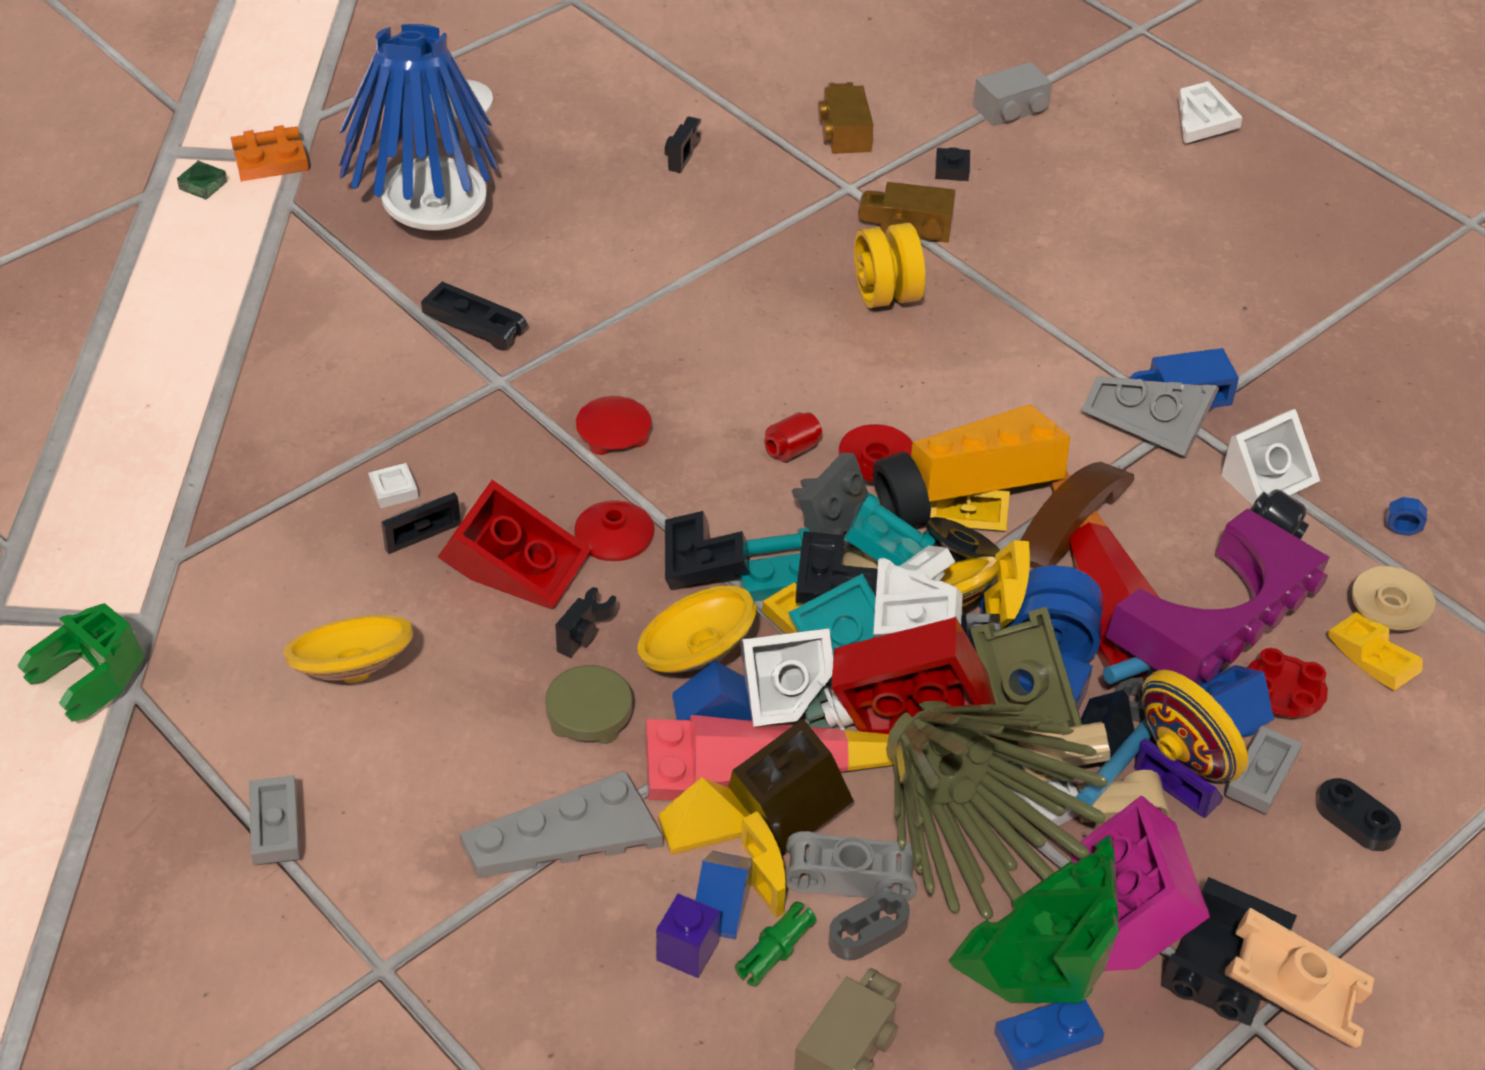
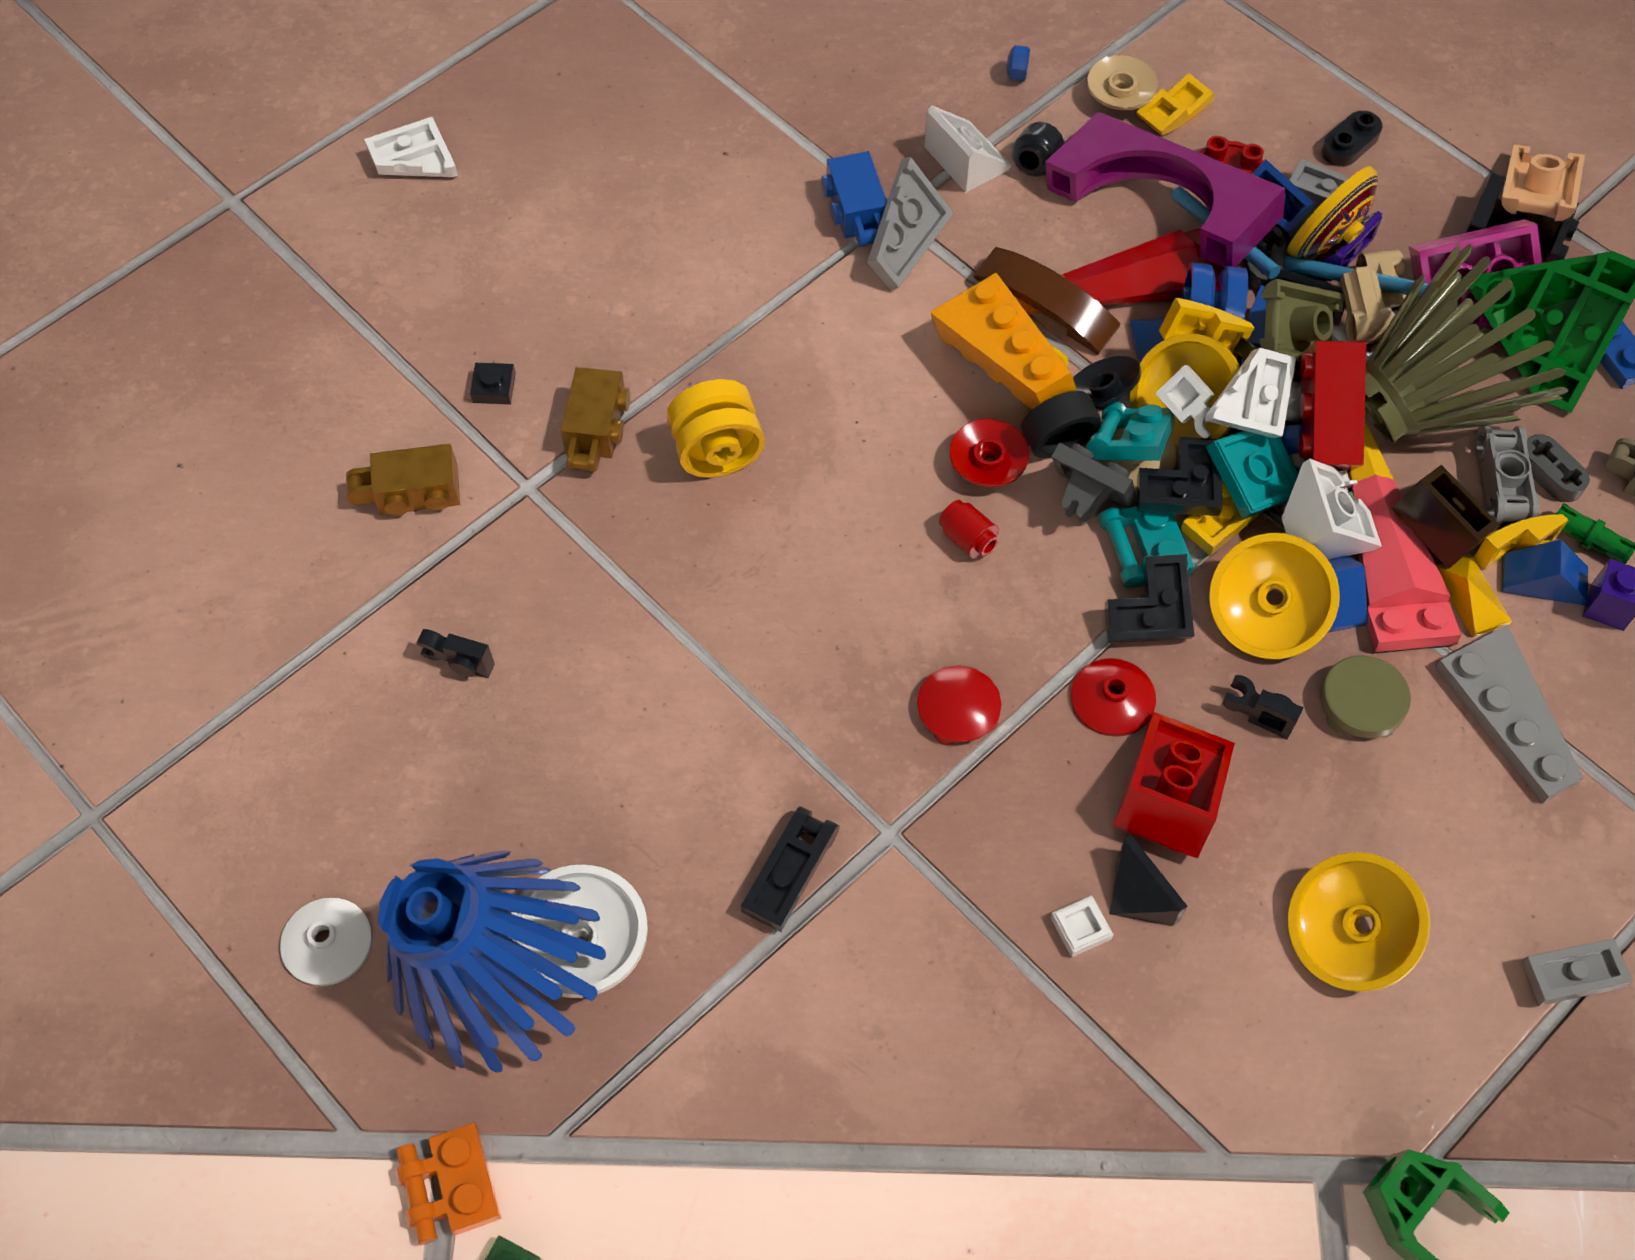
camera: 90 degrees left, 15 degrees up
(1012, 94) = (374, 316): light grey brick -> none

